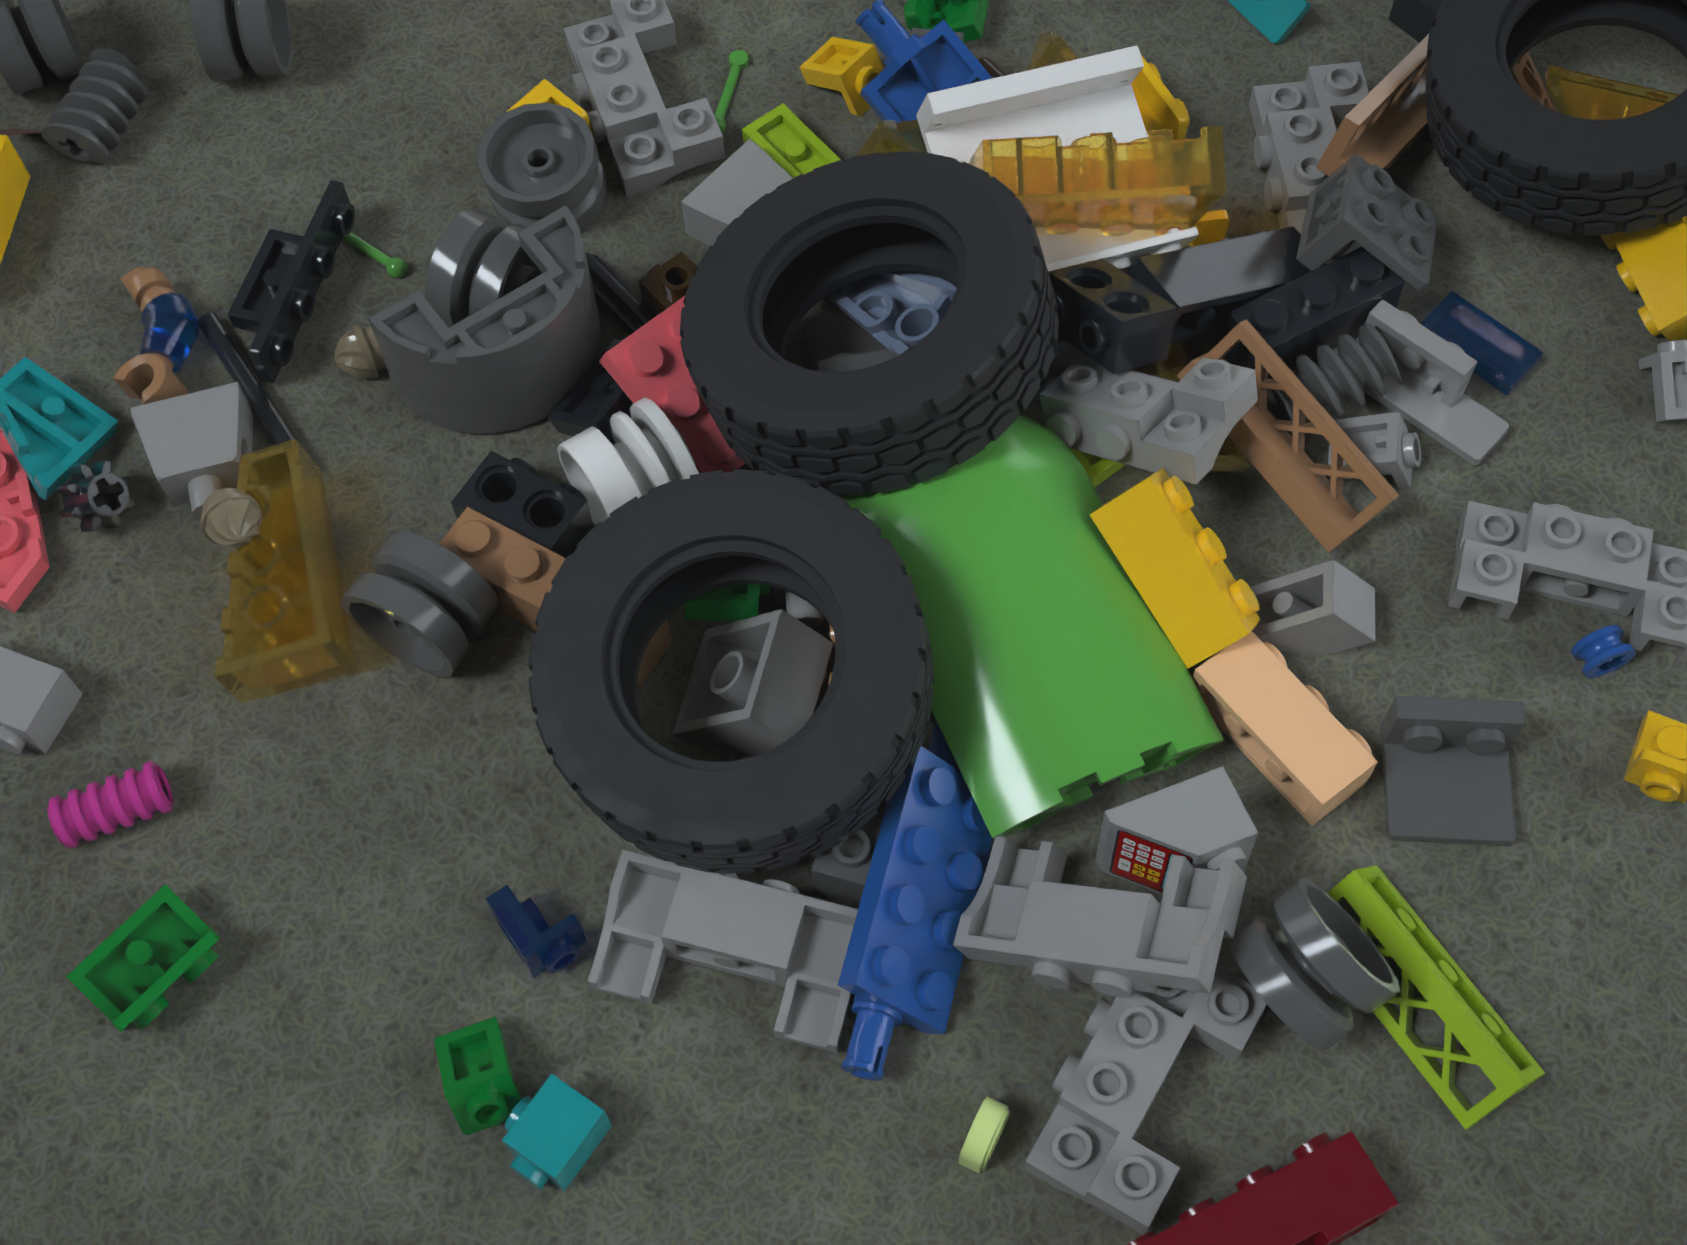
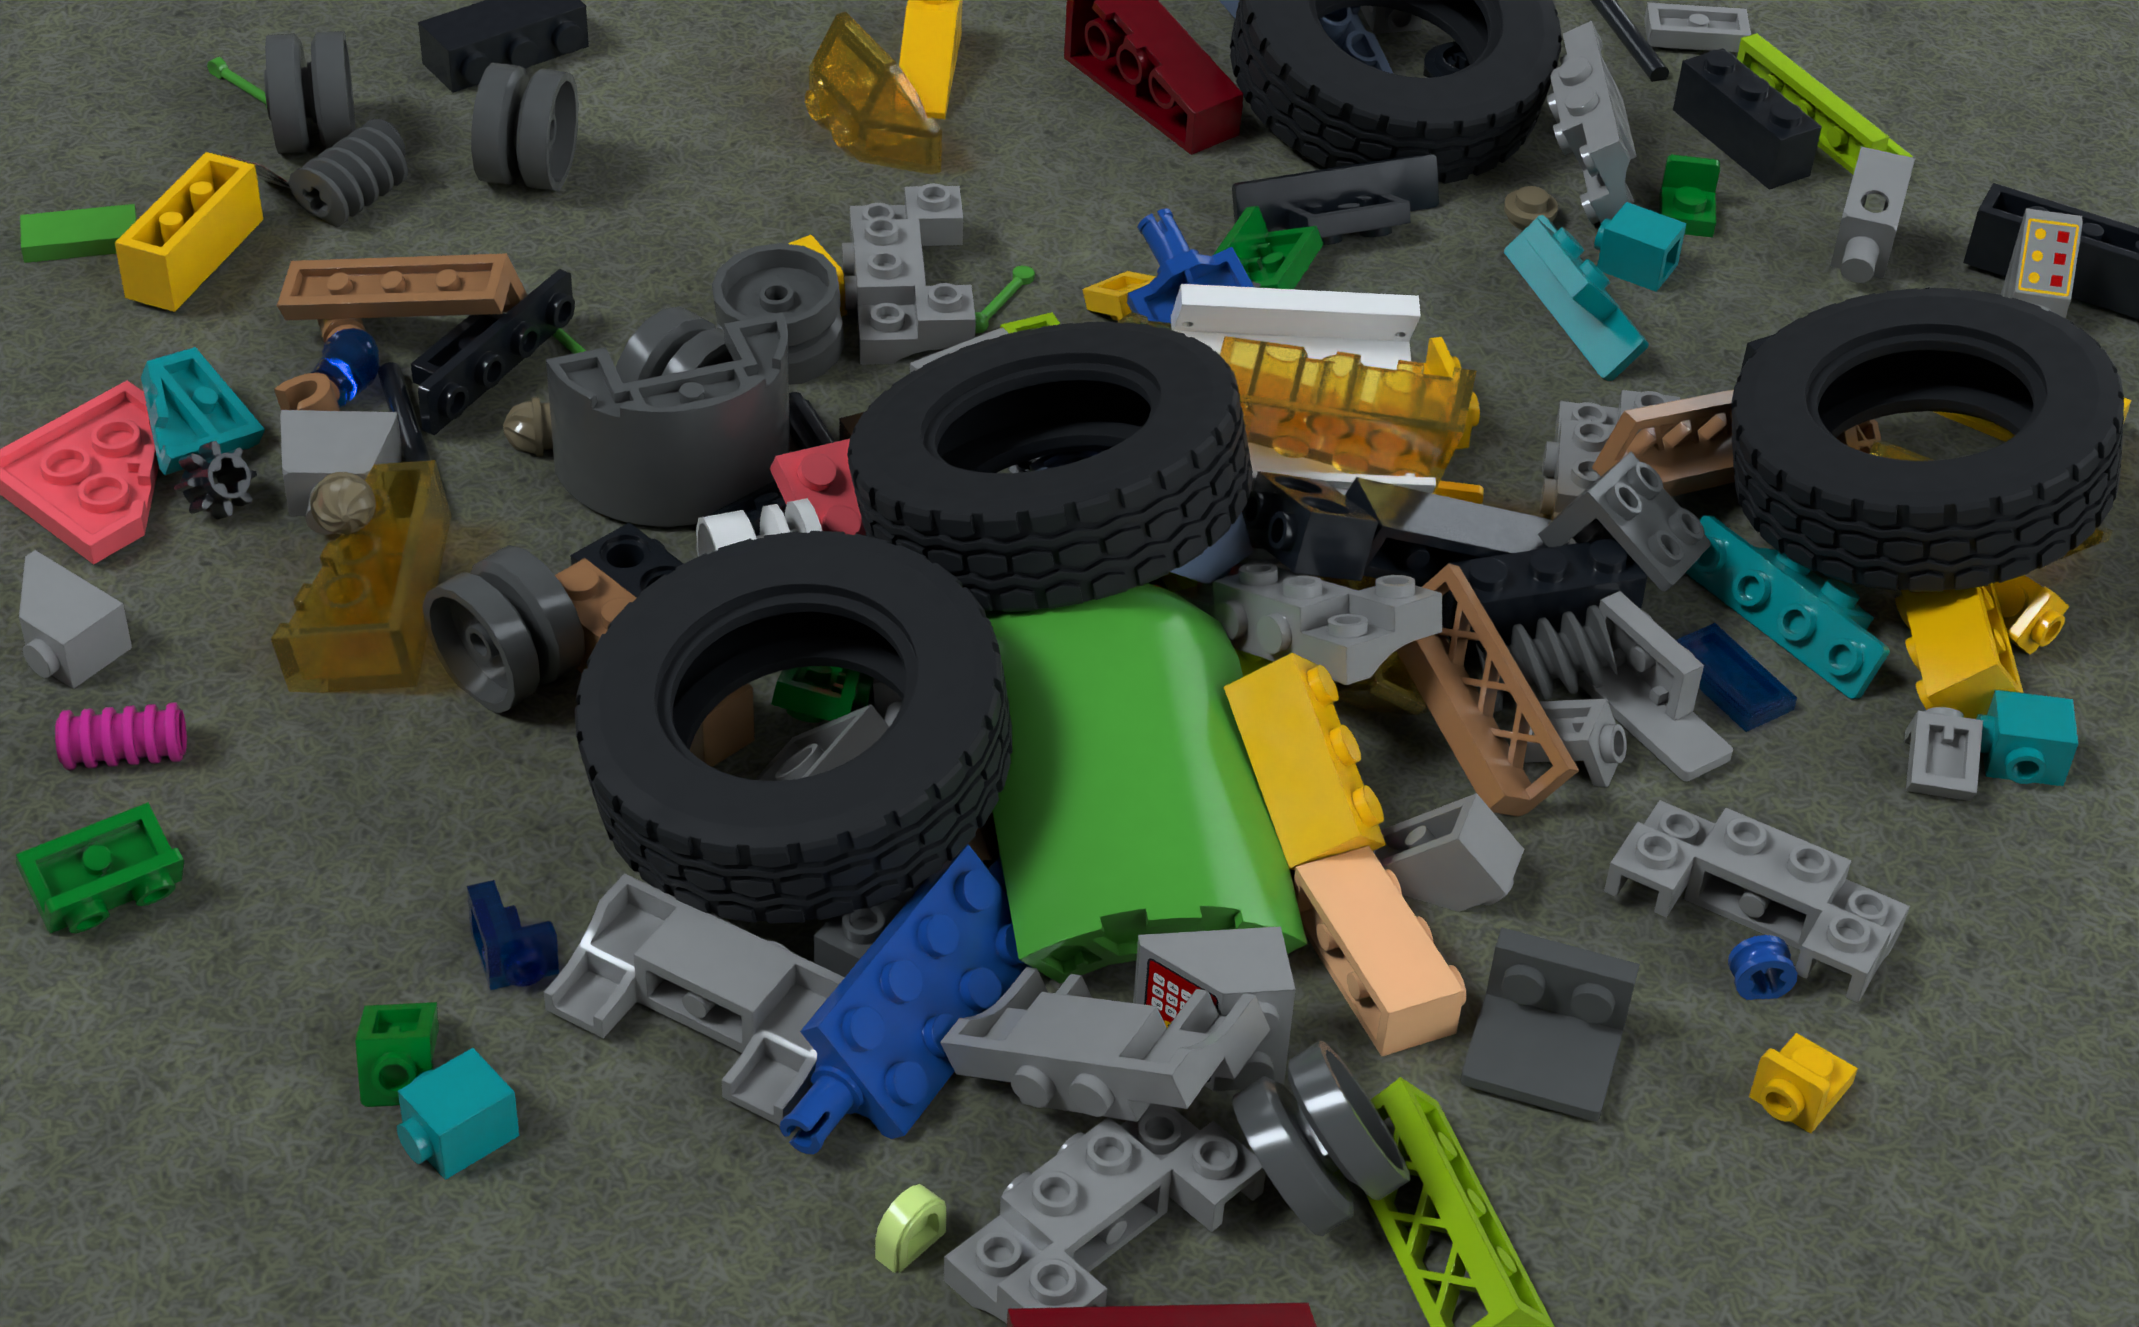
camera: 10 degrees right, 20 degrees down
(191, 242) = (400, 287): none -> medium nougat fence
(1518, 260) = (1792, 607): none -> teal bracket

